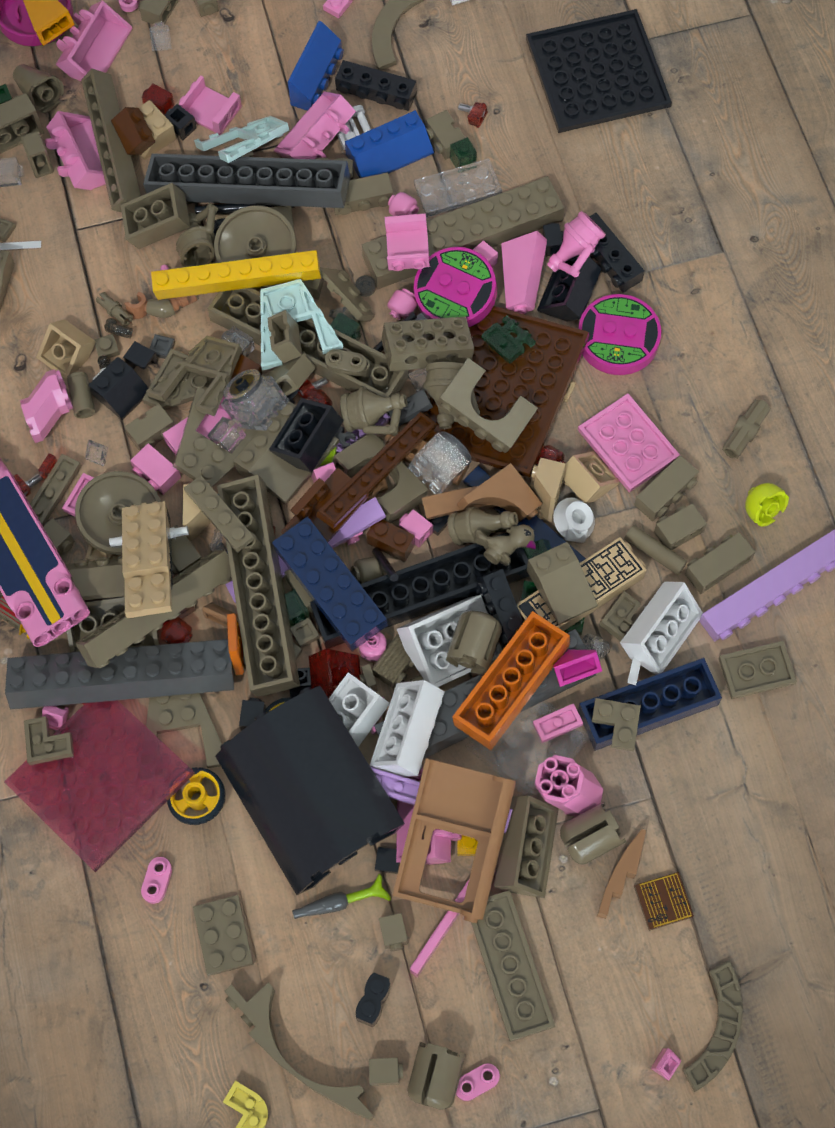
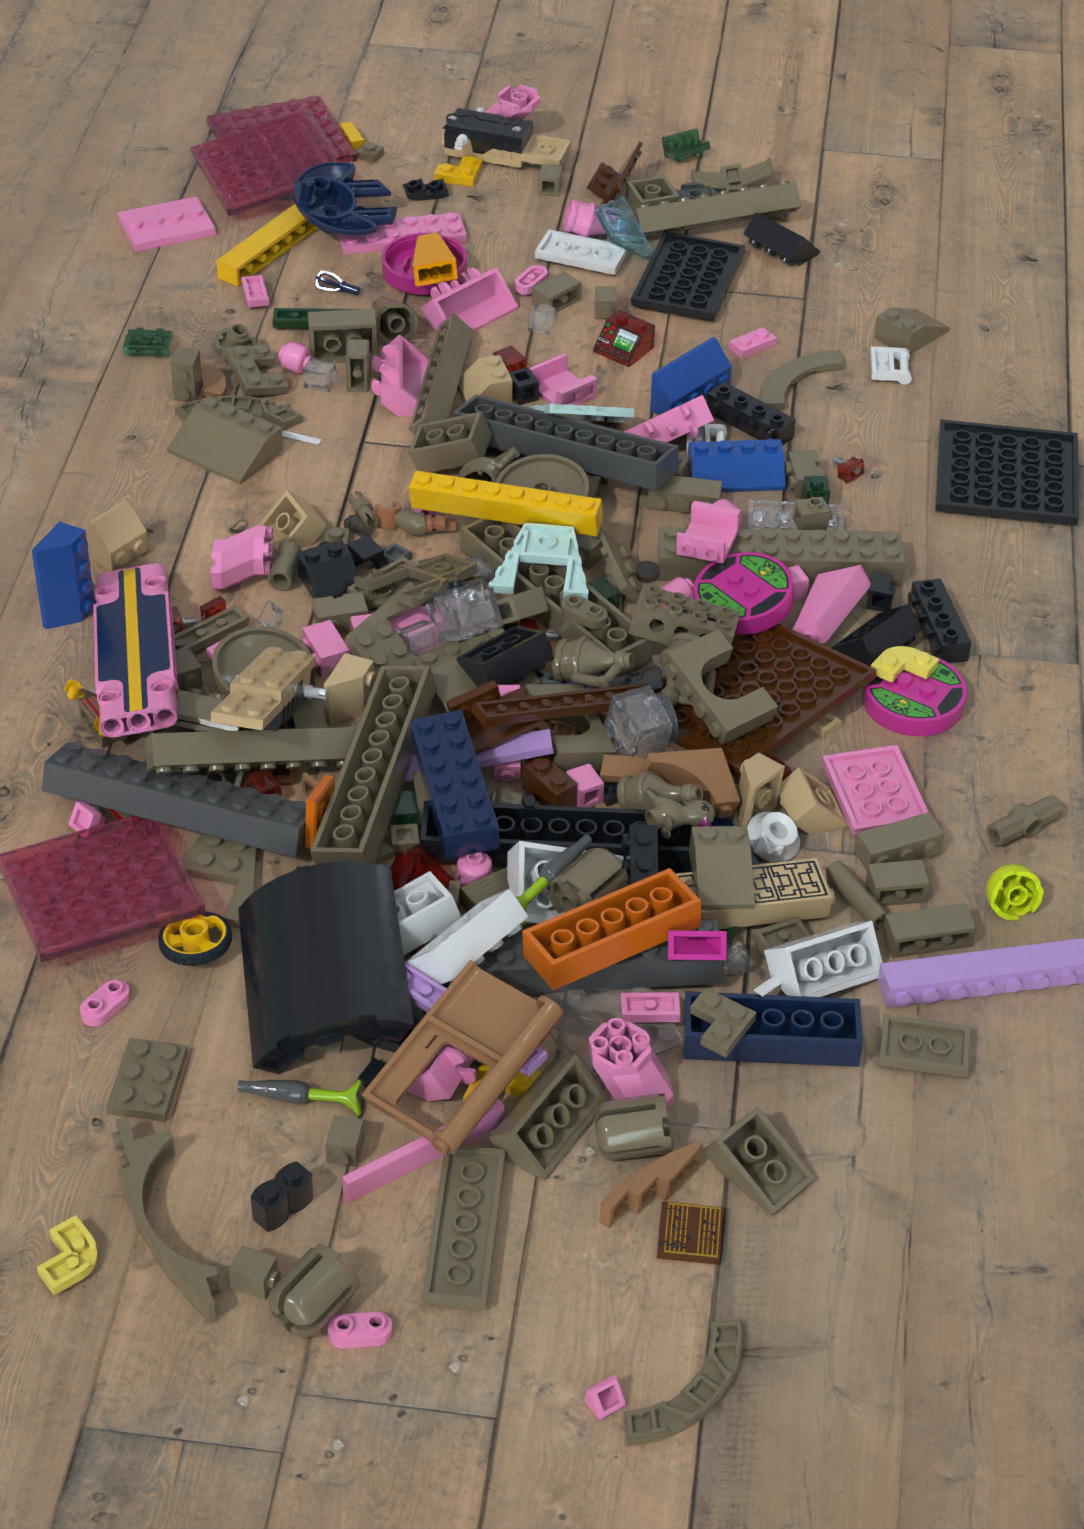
camera: 20 degrees right, 25 degrees down
(42, 746) = (59, 833): dark tan plate -> none
(133, 131) = (468, 373): reddish brown brick -> none
(219, 513) = (367, 685): dark tan plate -> none
(239, 36) = (625, 338): none -> clear red slope
(284, 336) = (527, 564): dark tan brick -> none
(442, 641) = (552, 869): none -> dark grey piece
(472, 183) = (812, 514): none -> dark tan brick
(504, 343) = (773, 650): clear green plate -> none
(579, 239) = (906, 586): bright pink piece -> none
(602, 308) = (905, 658): none -> light yellow plate
(686, 822) = (759, 1161): none -> dark tan slope

